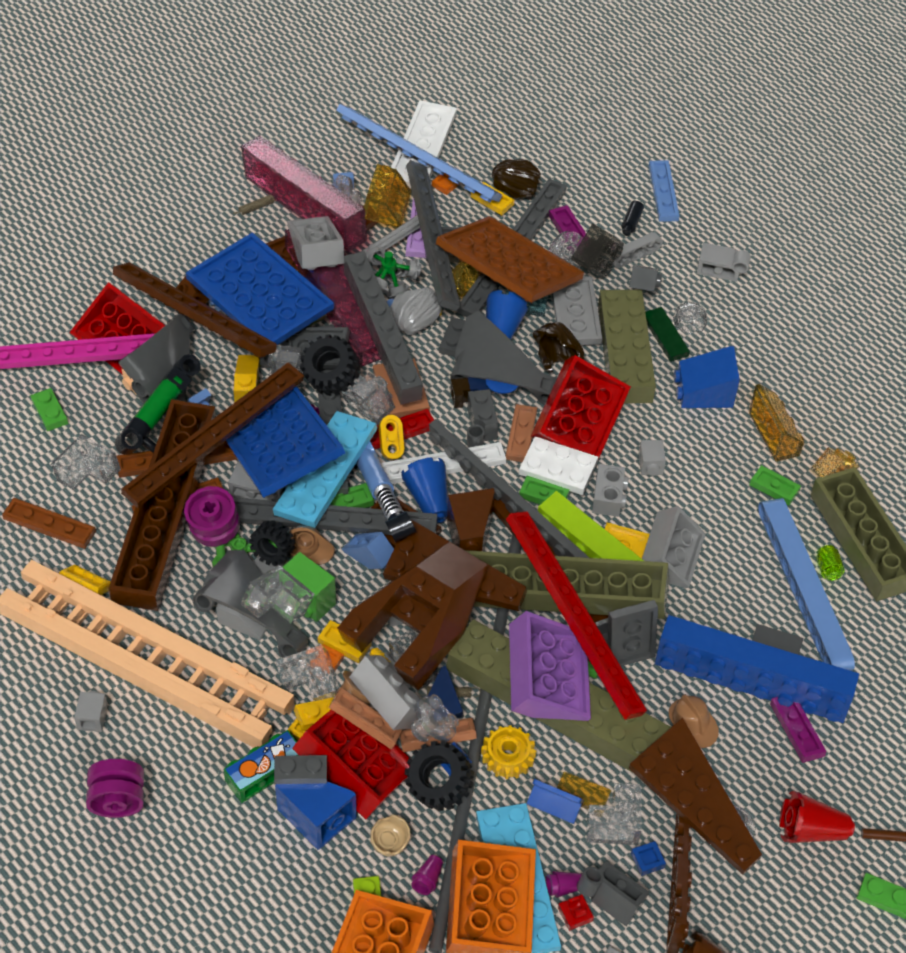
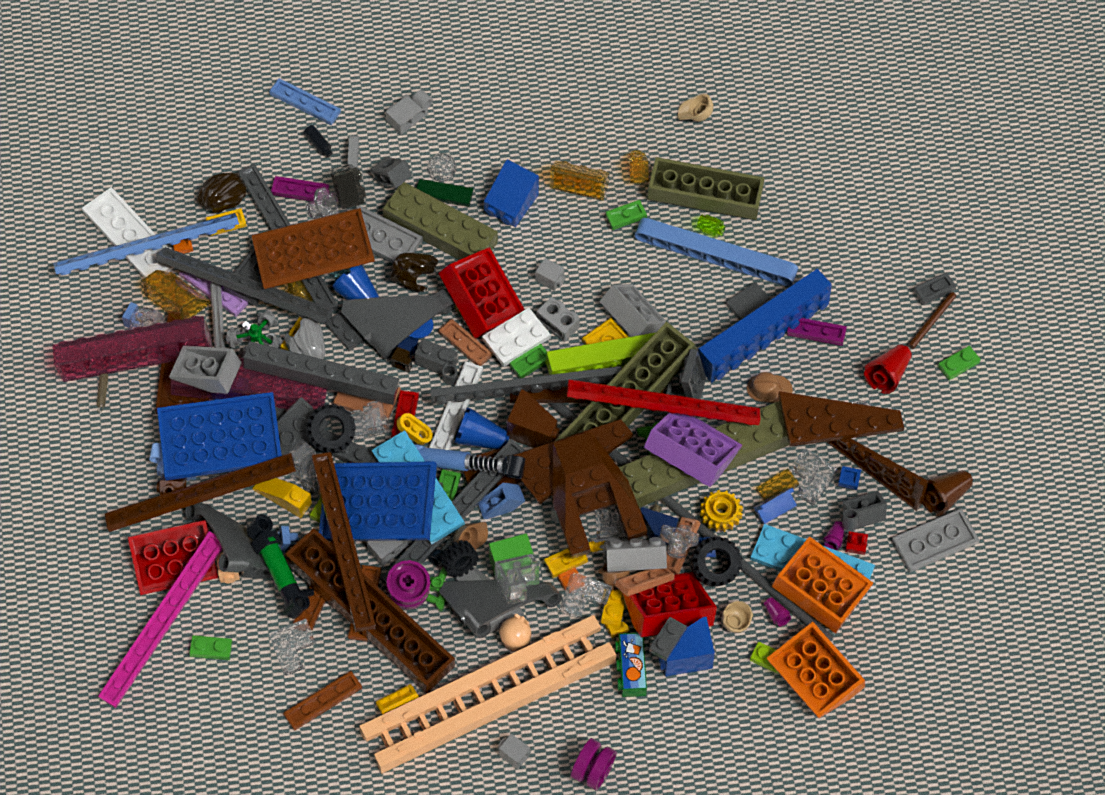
camera: 55 degrees left, 10 degrees up
(225, 639) = (515, 633): none -> light nougat helmet

